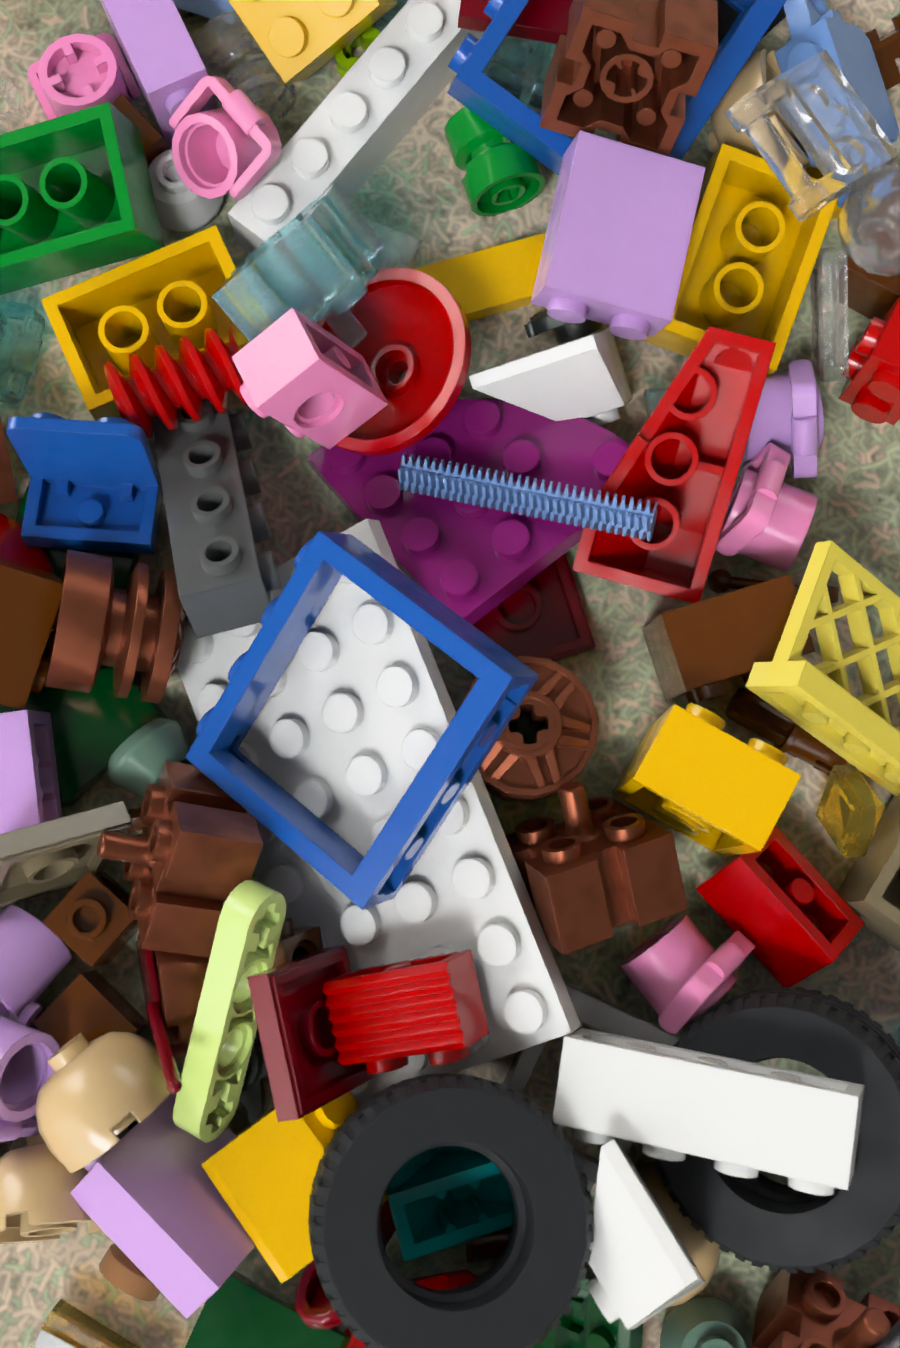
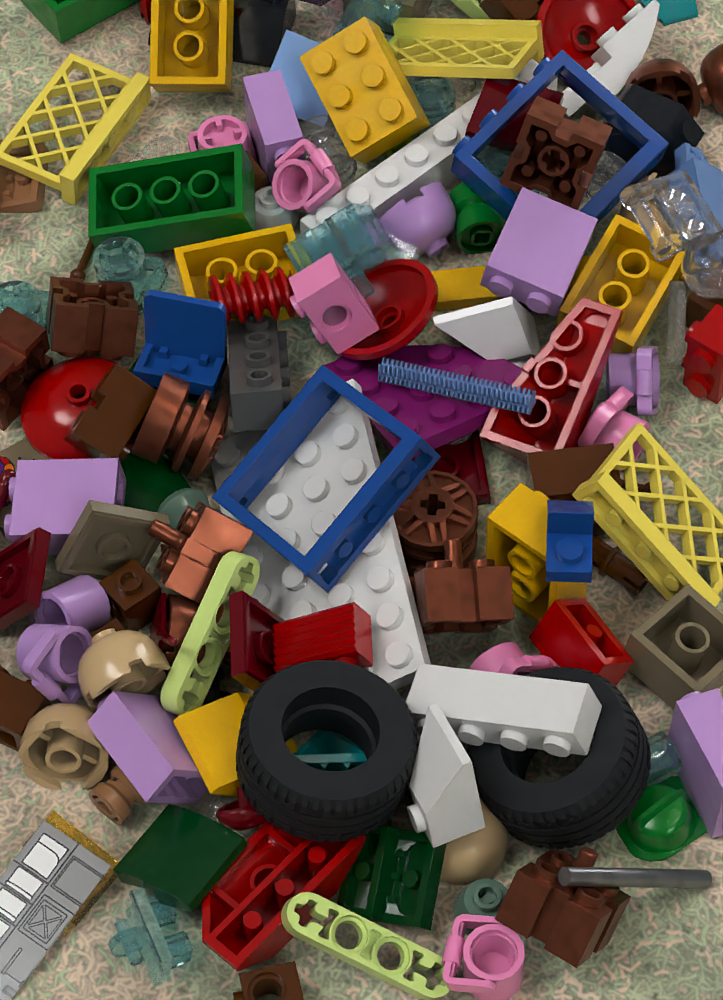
camera: 10 degrees right, 25 degrees down
(415, 183) = (423, 220): none -> lavender cylinder
(775, 807) = (569, 541): none -> blue slope
(849, 810) = (638, 602): clear yellow tile -> none

